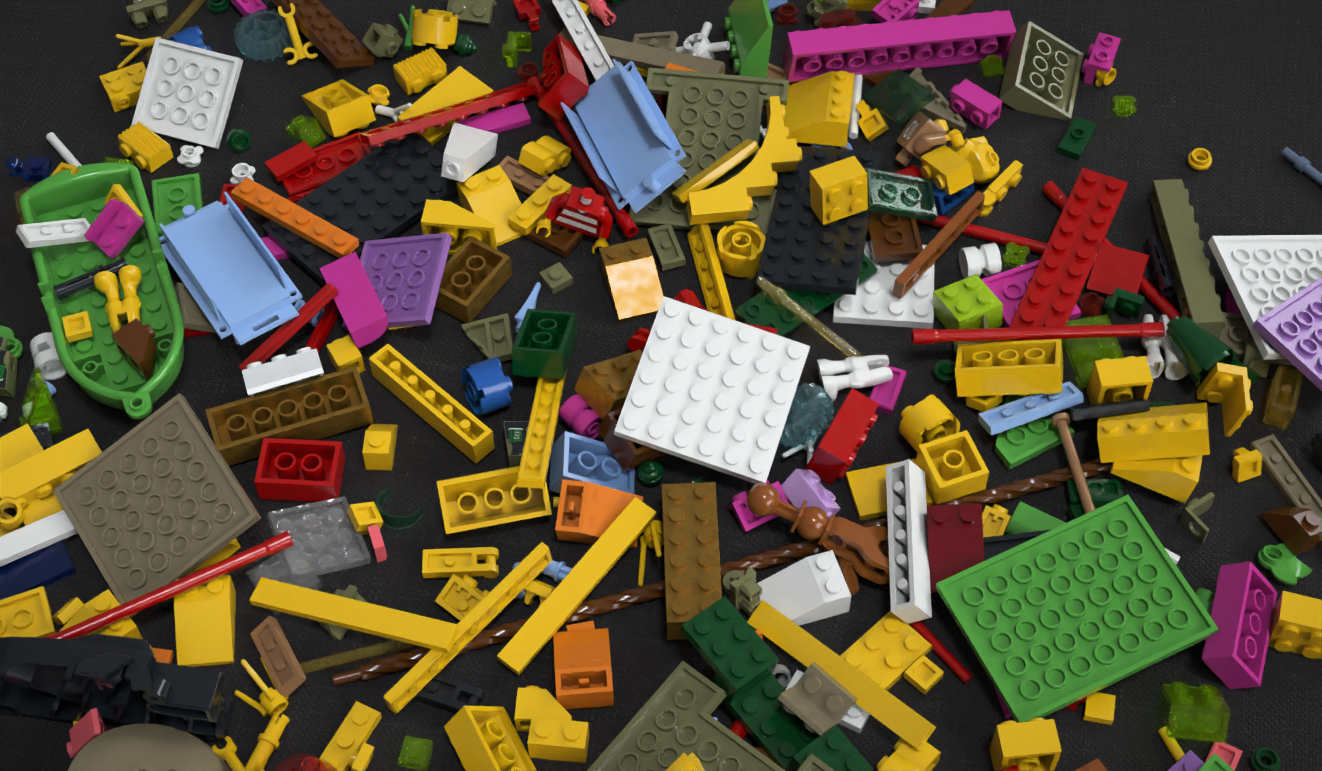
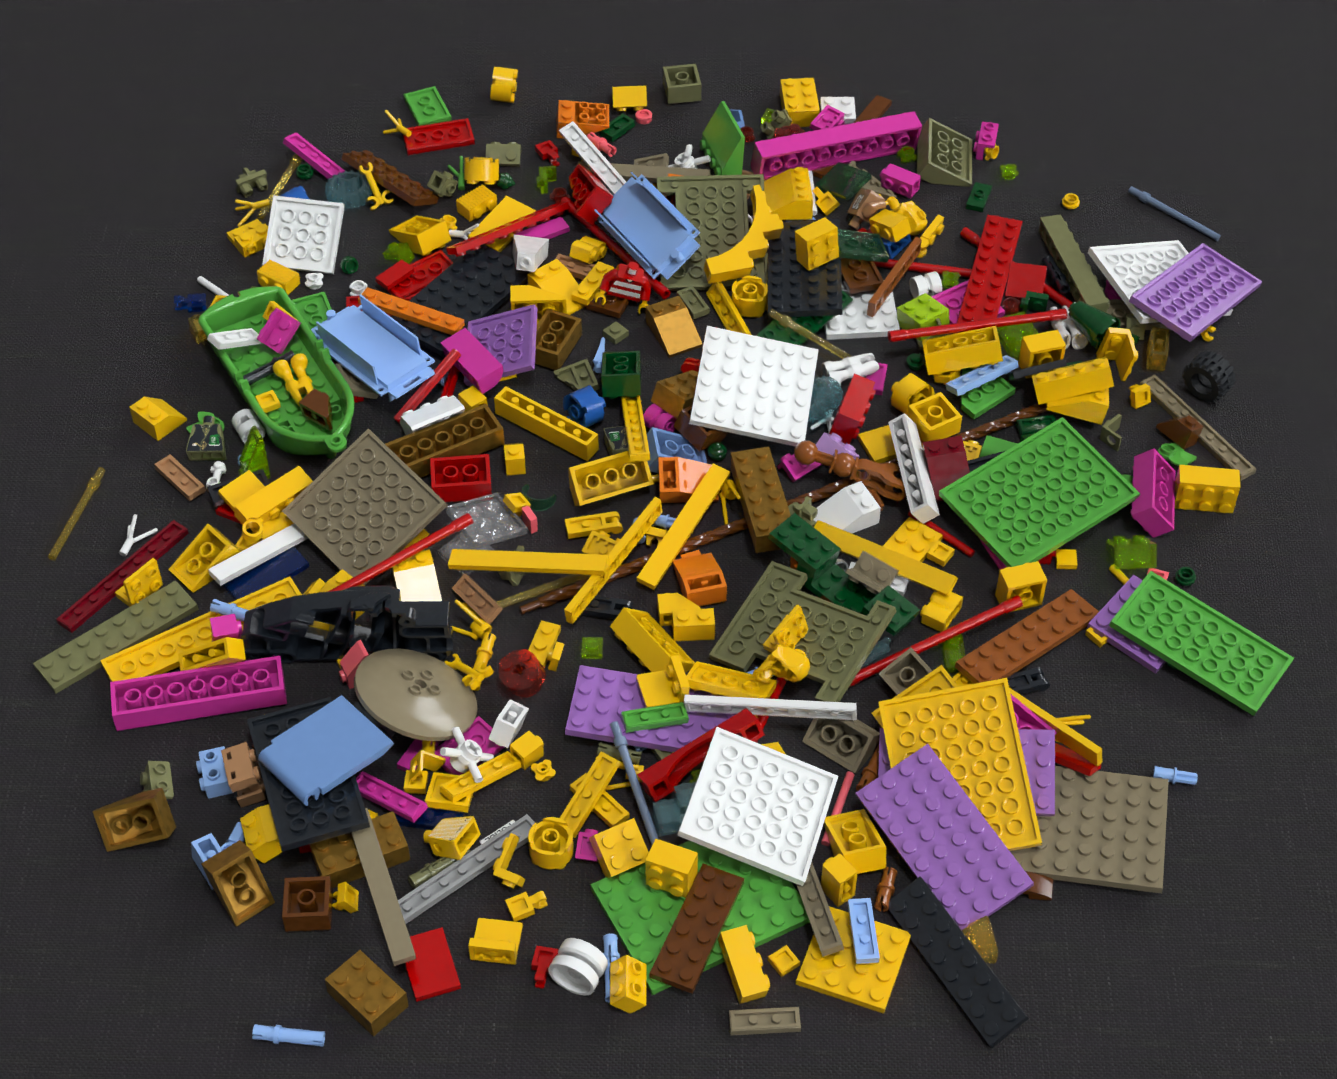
camera: 10 degrees left, 5 degrees down
(716, 170) = (721, 243): yellow tile -> none
(1061, 422) = (1005, 382): medium nougat bar -> none

